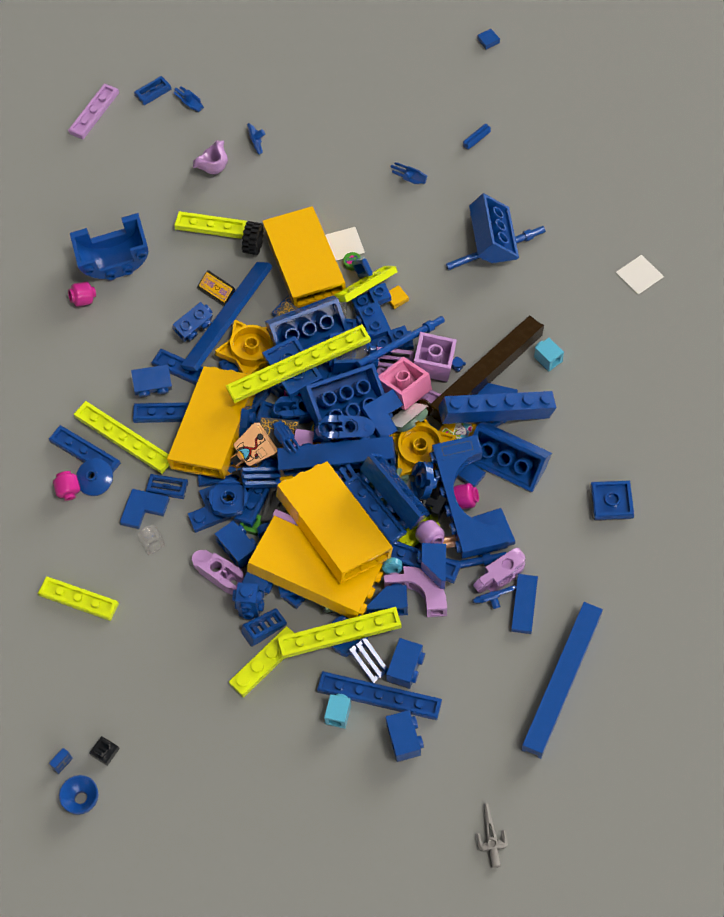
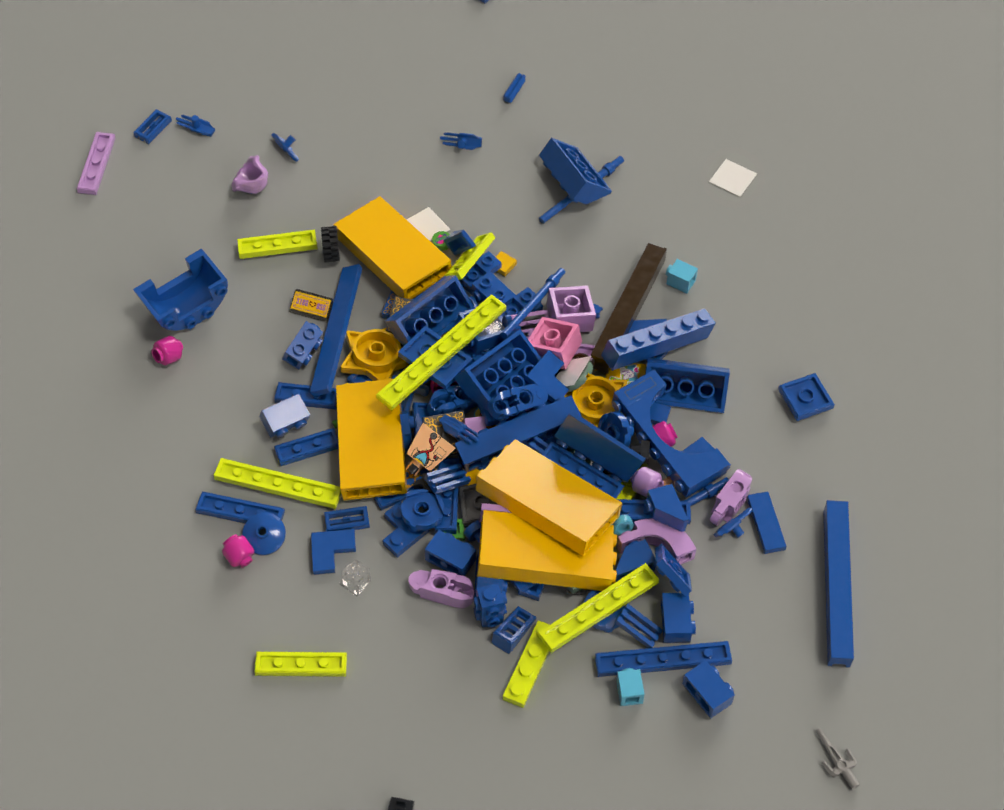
camera: 25 degrees left, 5 degrees down
(416, 620) = (669, 566): none -> blue plate

